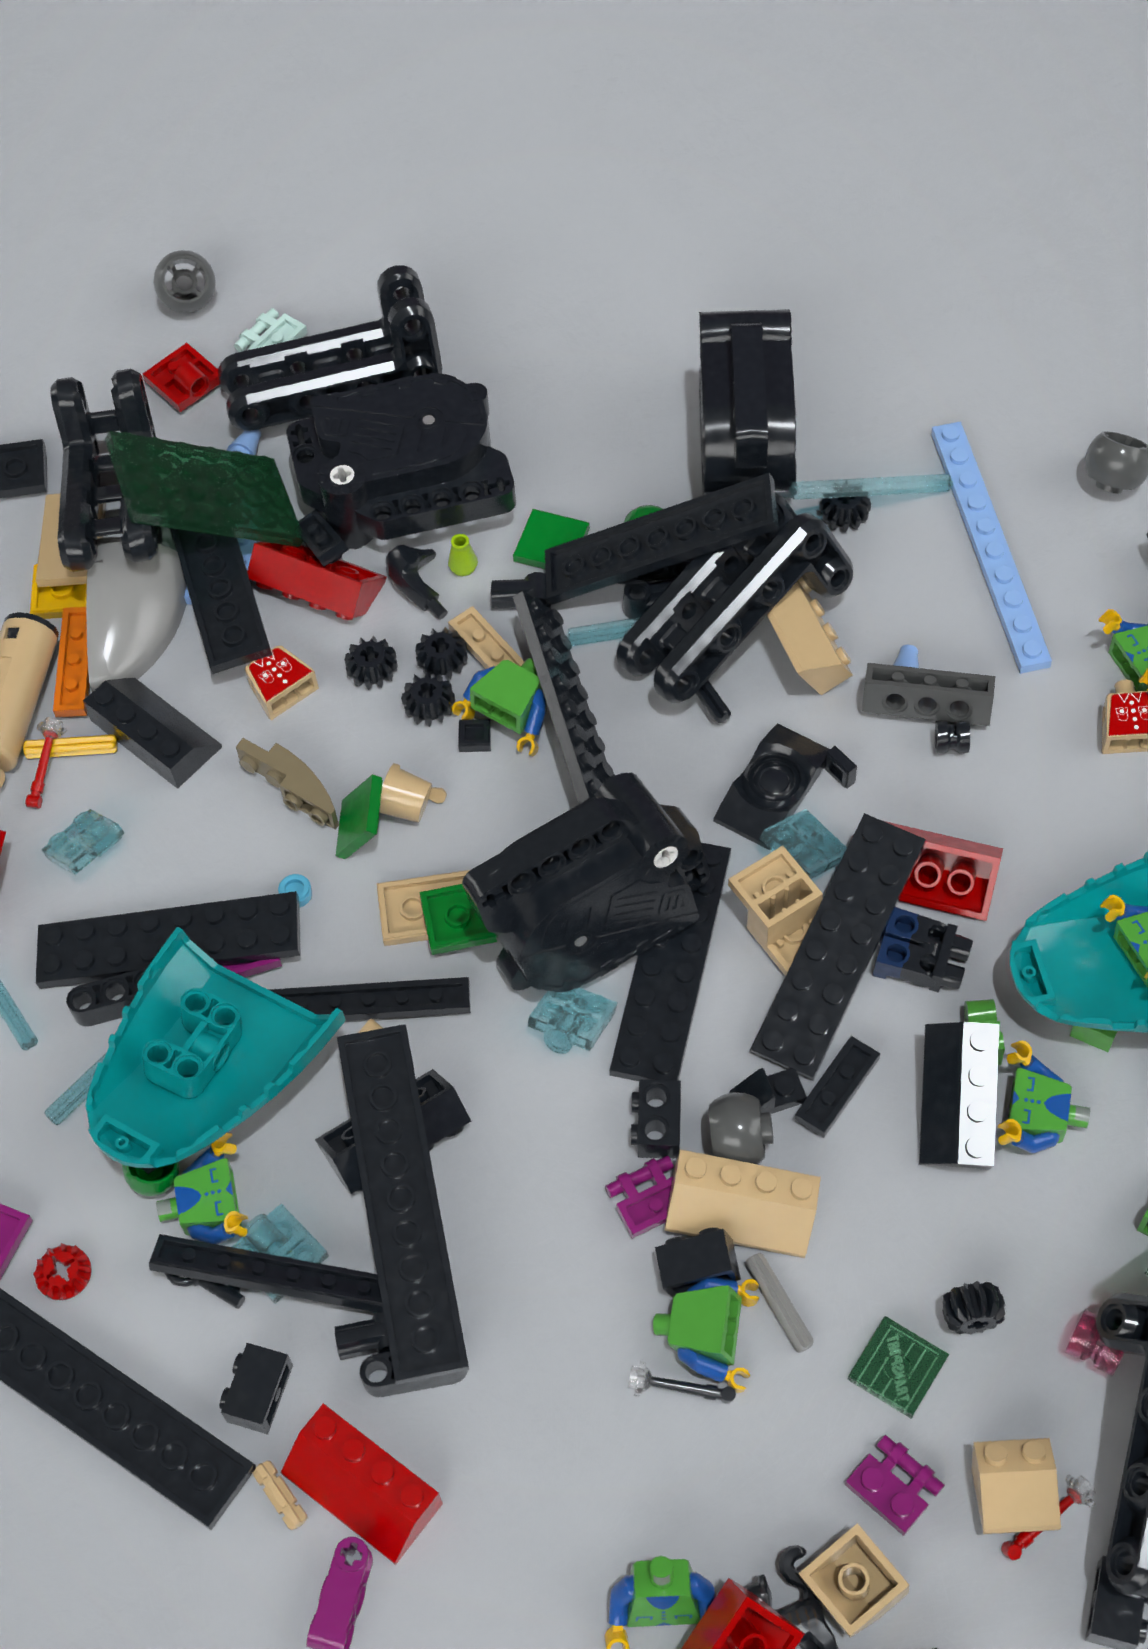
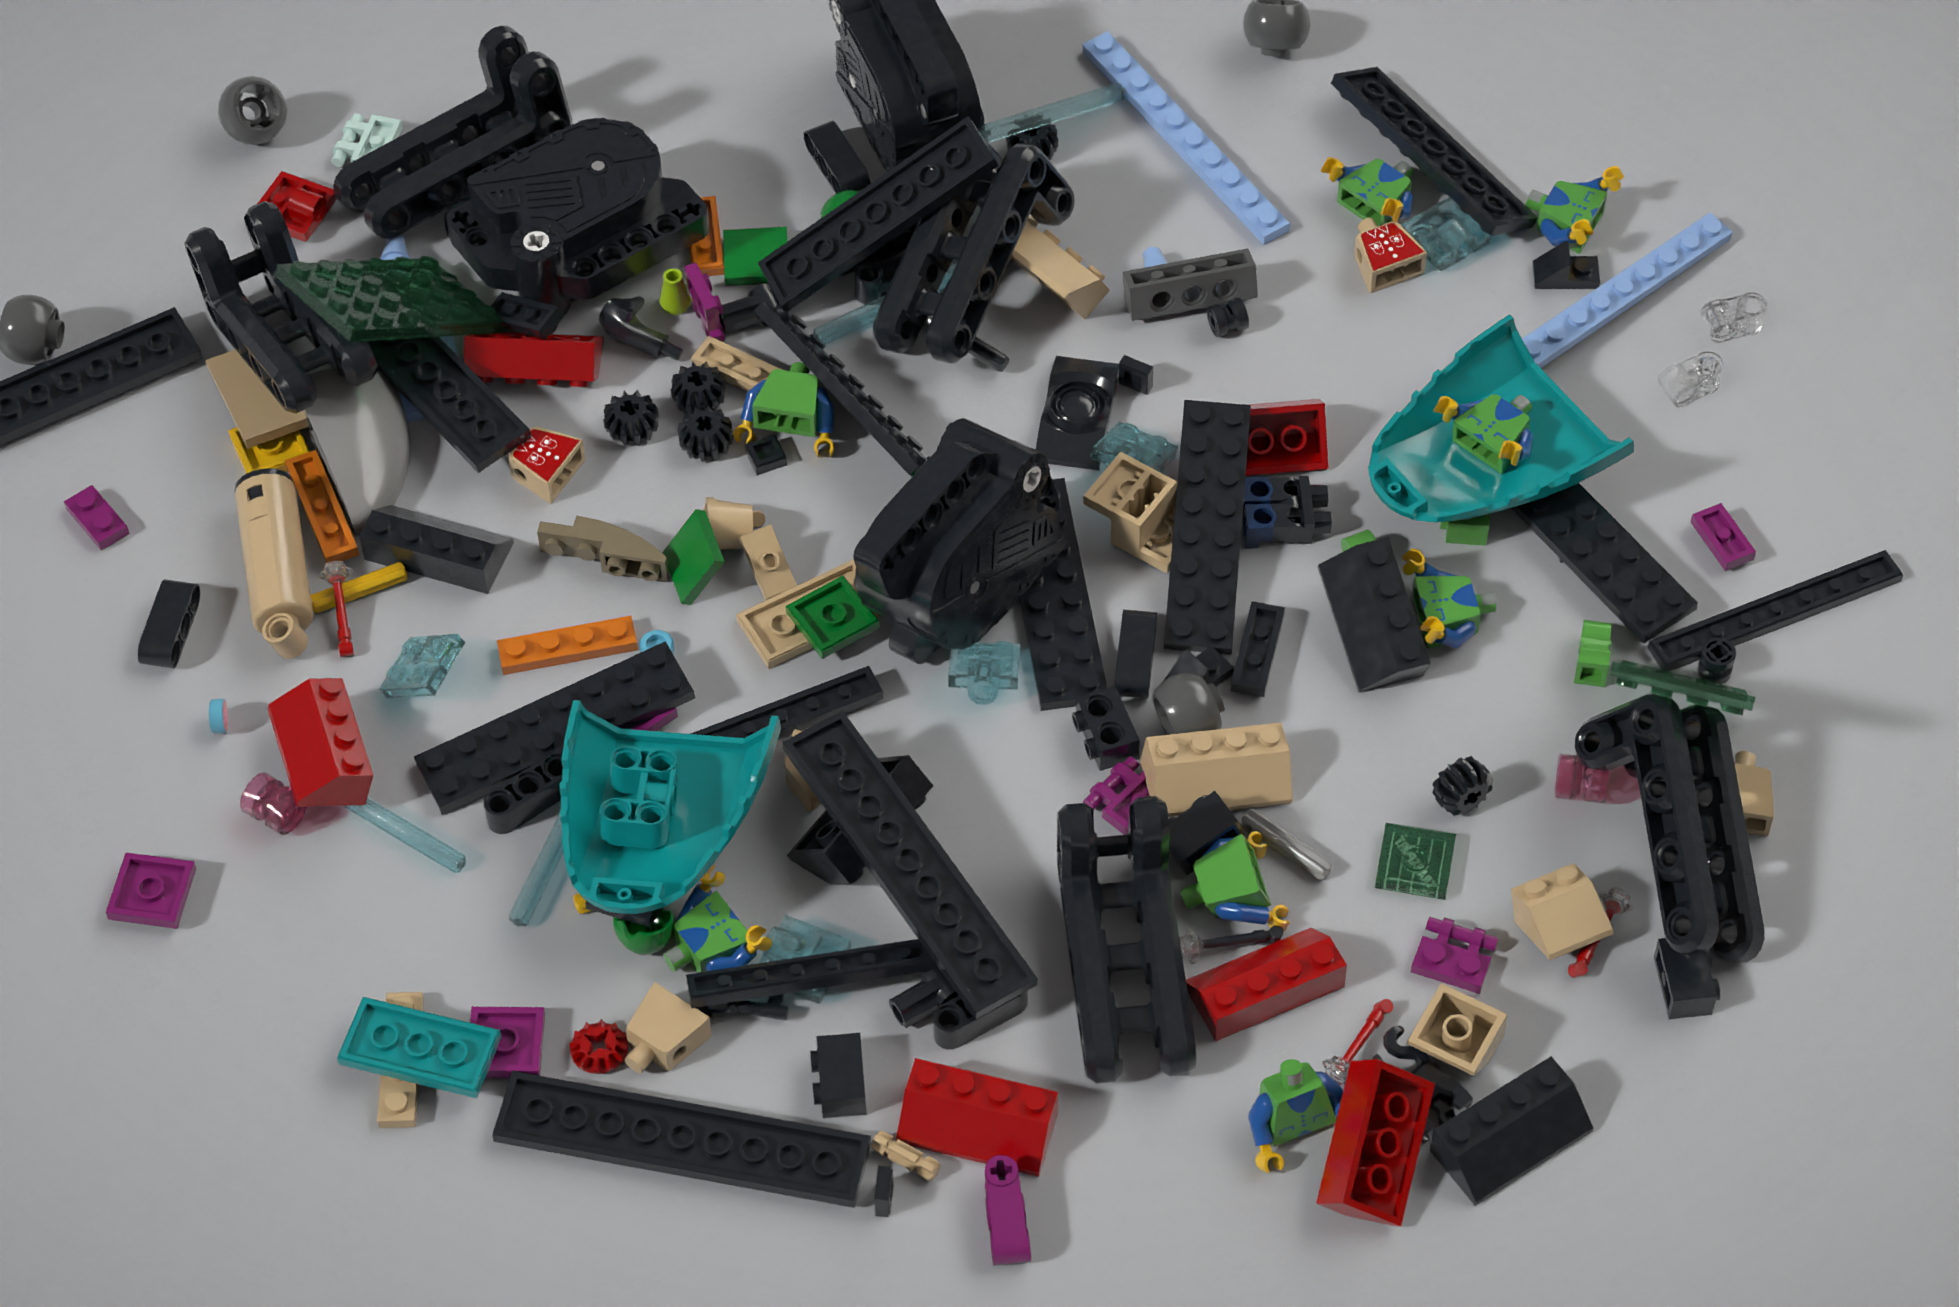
camera: 25 degrees left, 5 degrees down
(121, 1280) = (664, 1030): none -> tan torso
(219, 862) = (567, 645): none -> orange plate
(240, 1526) = (883, 1191): none -> black tile
(424, 843) = (767, 561): none -> tan plate
(480, 574) = (704, 303): none -> magenta plate
(510, 526) = (708, 251): none -> orange tile
(538, 1357) = (1156, 952): none -> black beam
(661, 471) = (836, 158): none -> black beam
(696, 1443) = (1267, 982): none -> red slope
(719, 1051) = (1135, 653): none -> black beam
(728, 1567) = (1338, 1066): none -> red piece

